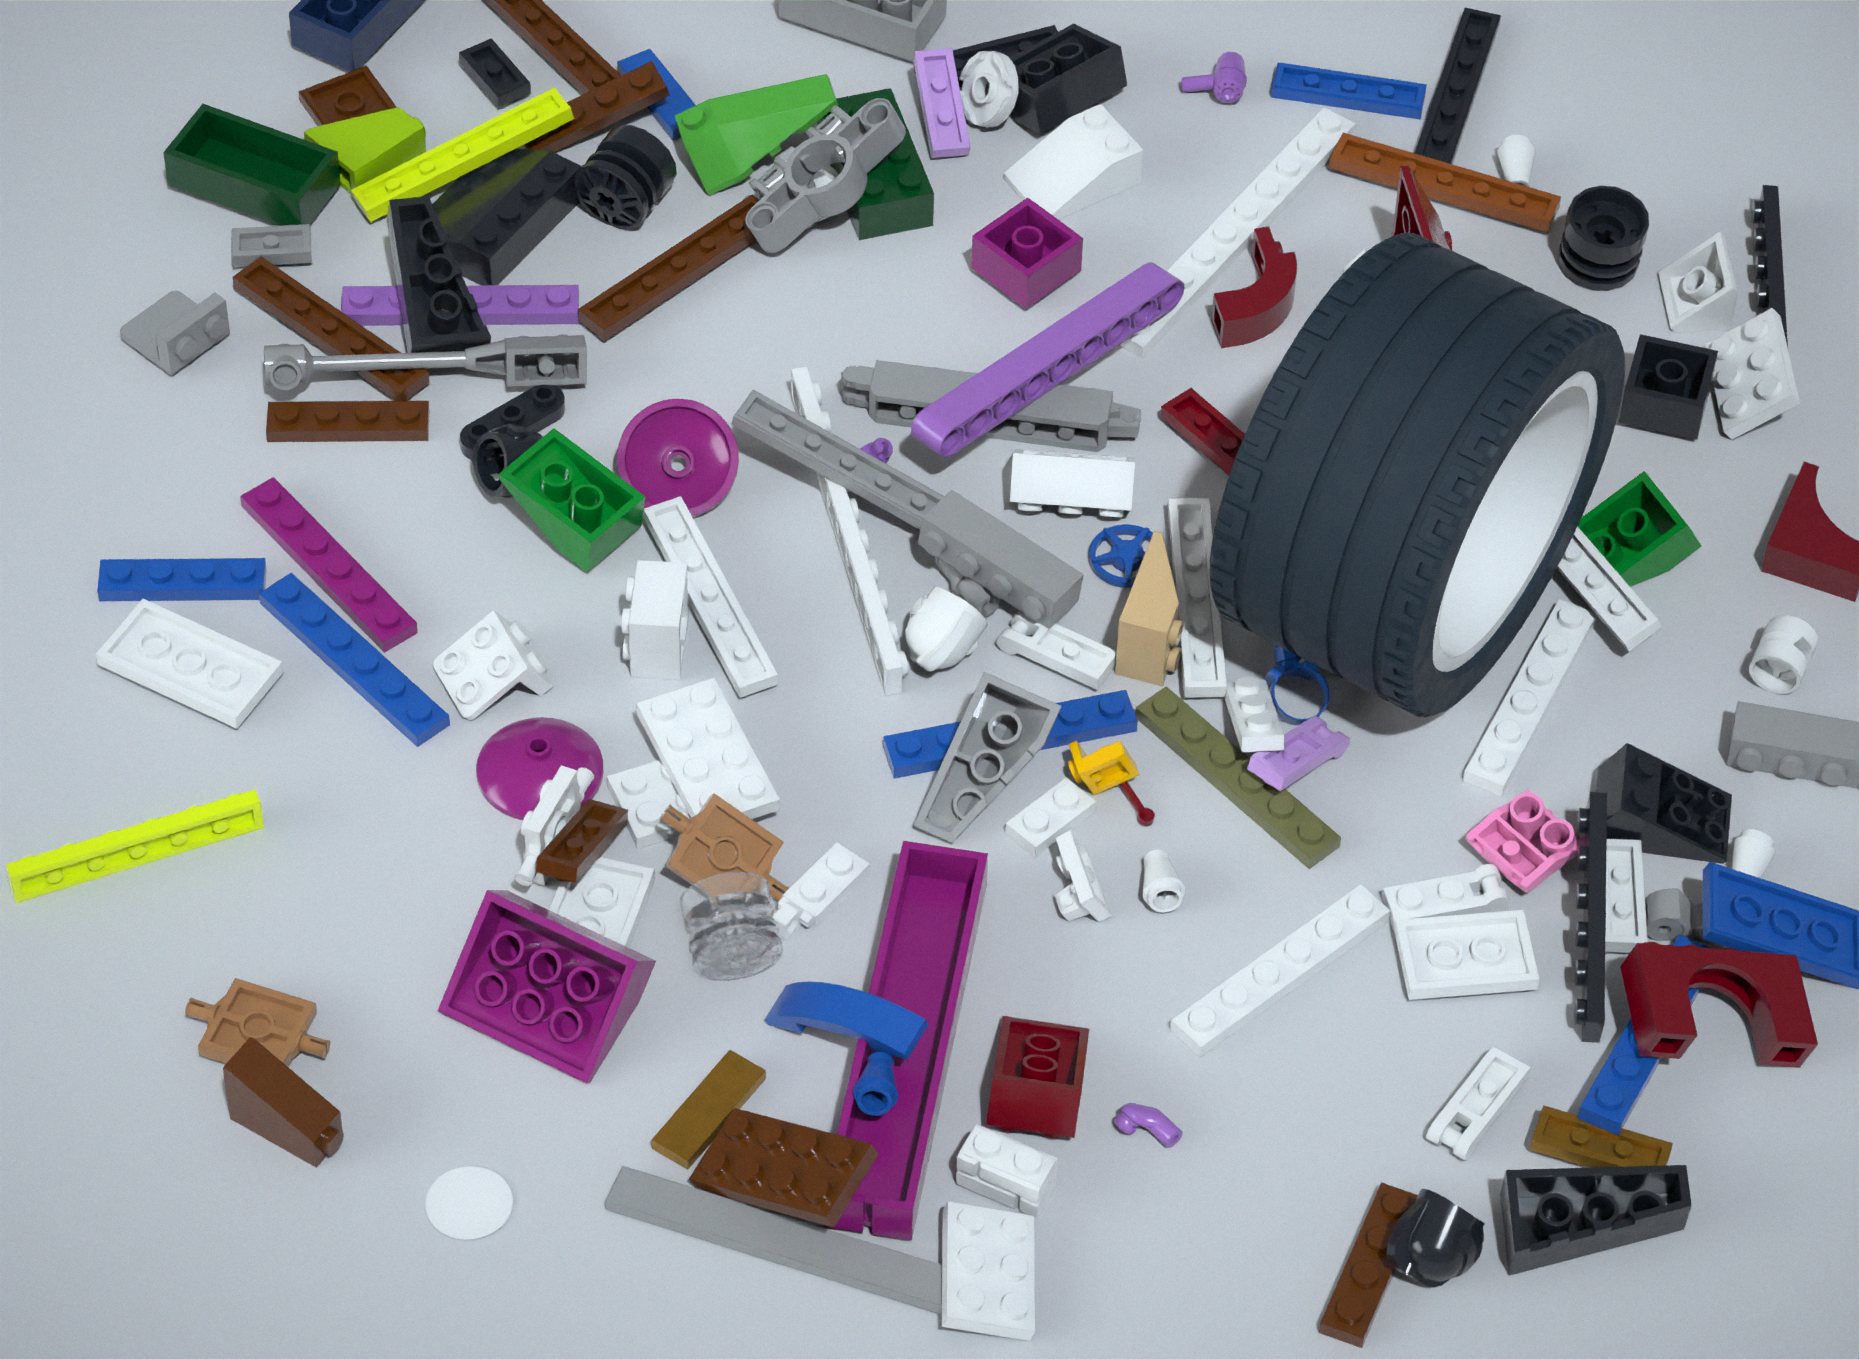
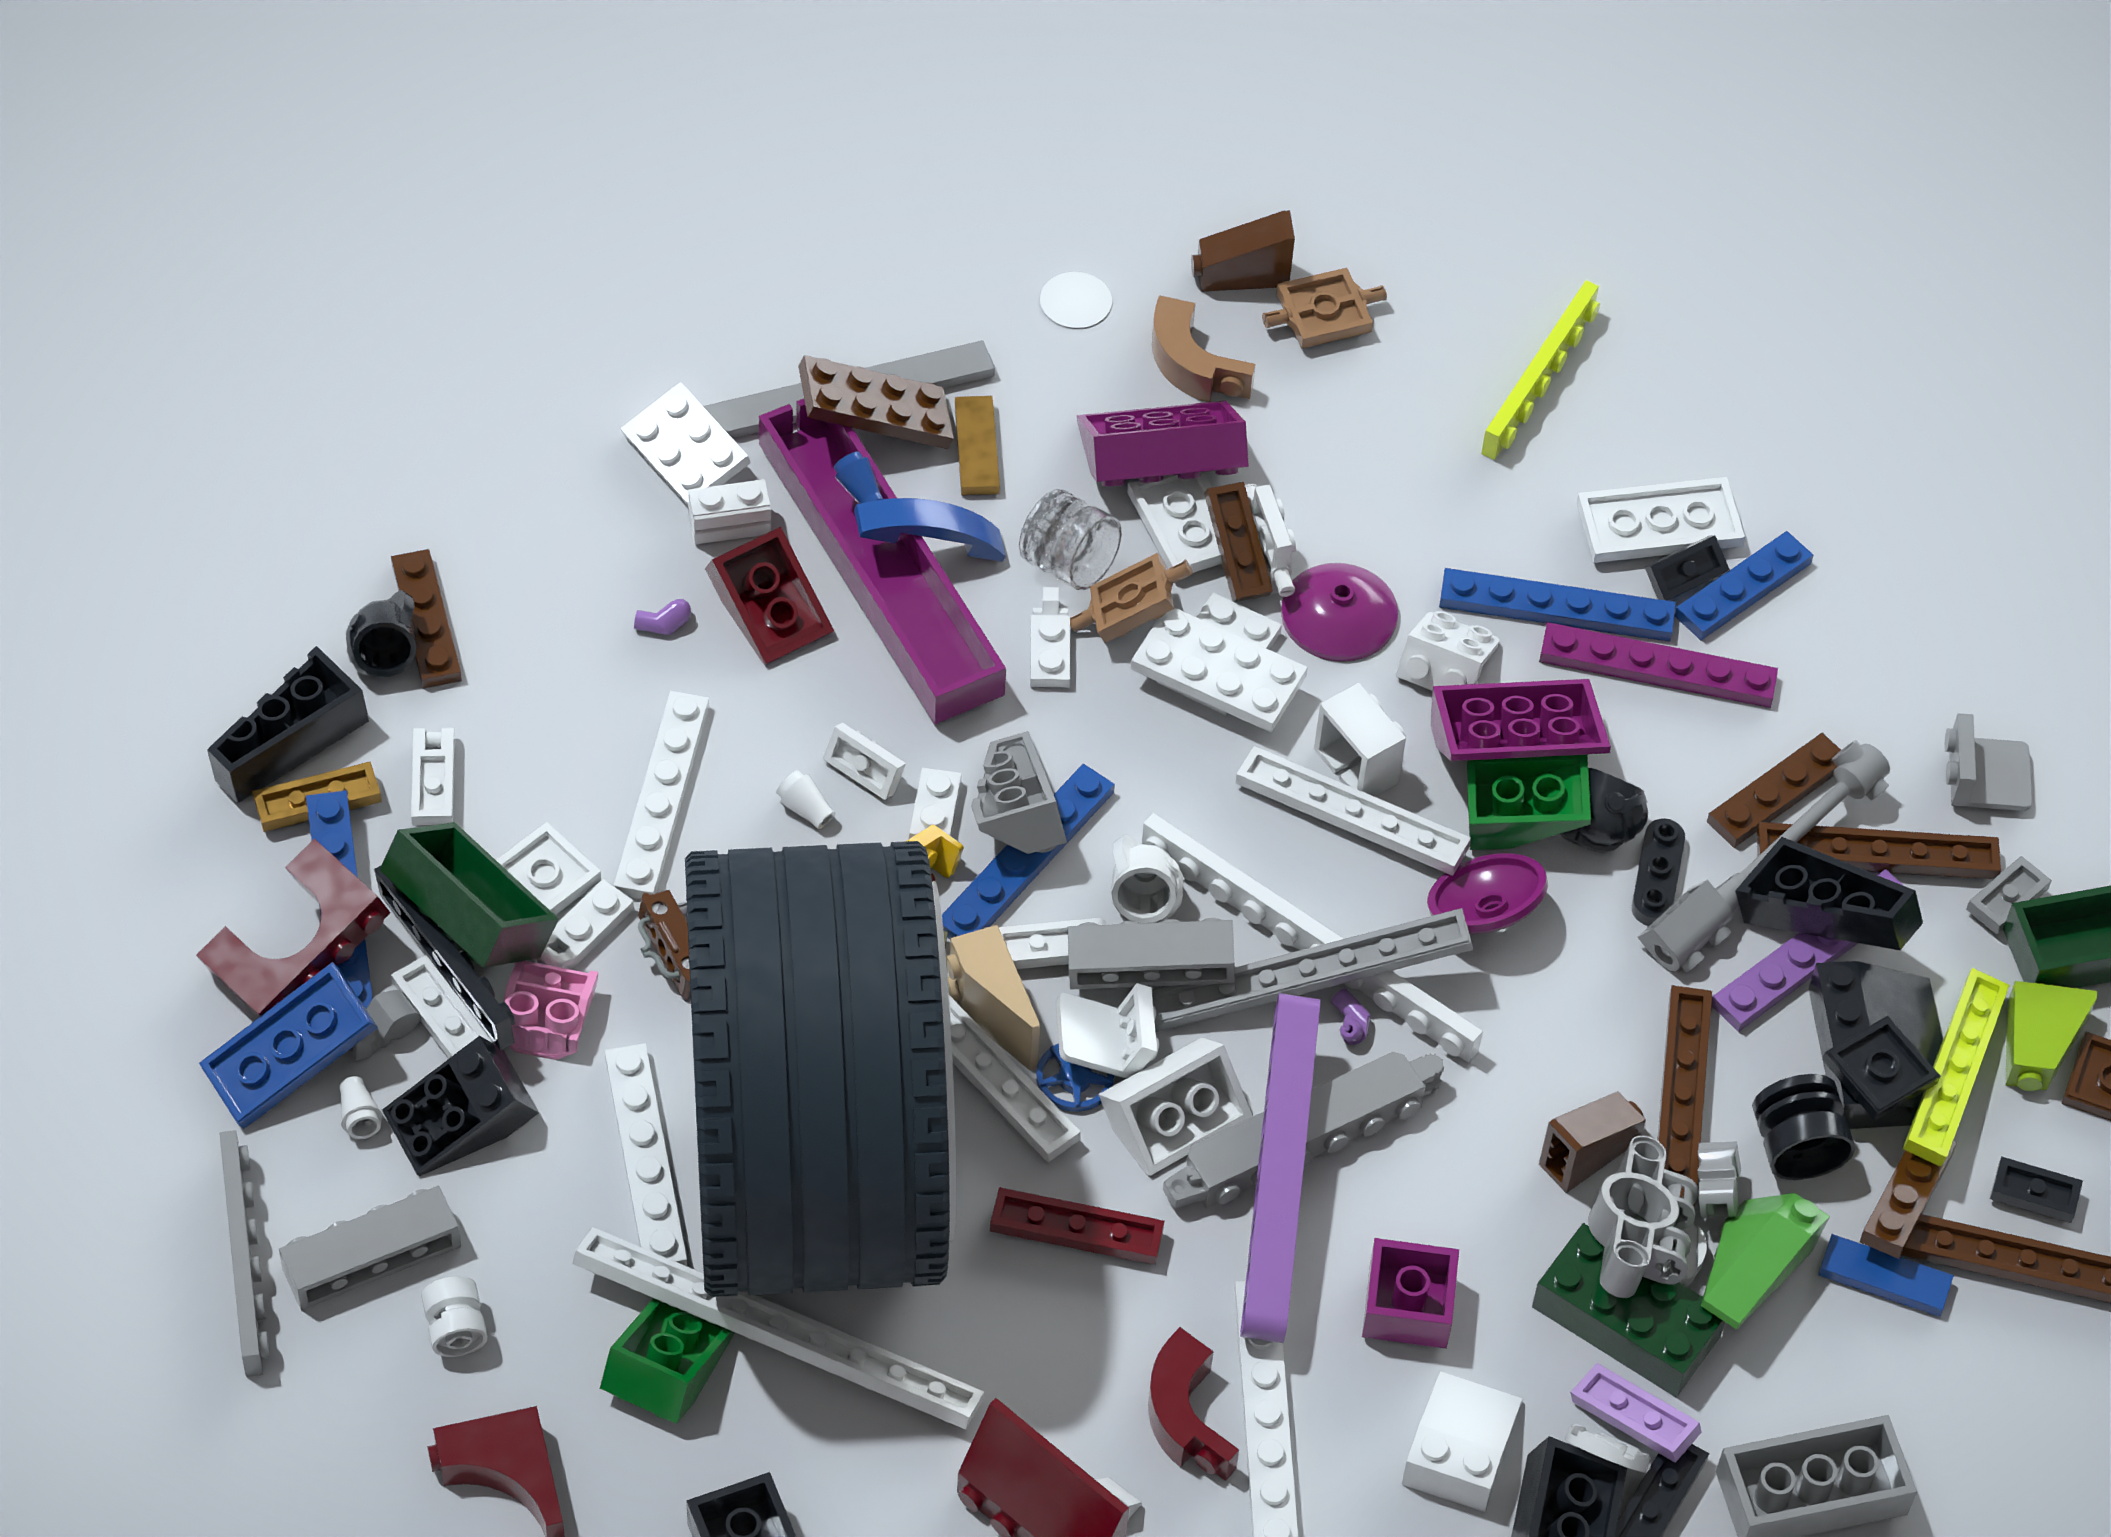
camera: 140 degrees right, 5 degrees up
(202, 606) = (1687, 568): none -> black plate
(434, 1081) = (1189, 365): none -> medium nougat arch
(524, 539) = (1517, 720): none -> magenta slope
(534, 157) = (1881, 1068): none -> black tile
(726, 184) = (1718, 1179): none -> light grey leg
(783, 267) = (1589, 1139): none -> slope
(1084, 540) = (1106, 1036): none -> white bracket
(1374, 831) = (668, 931): none -> reddish brown piece
(1547, 917) = (468, 894): none -> dark green piece

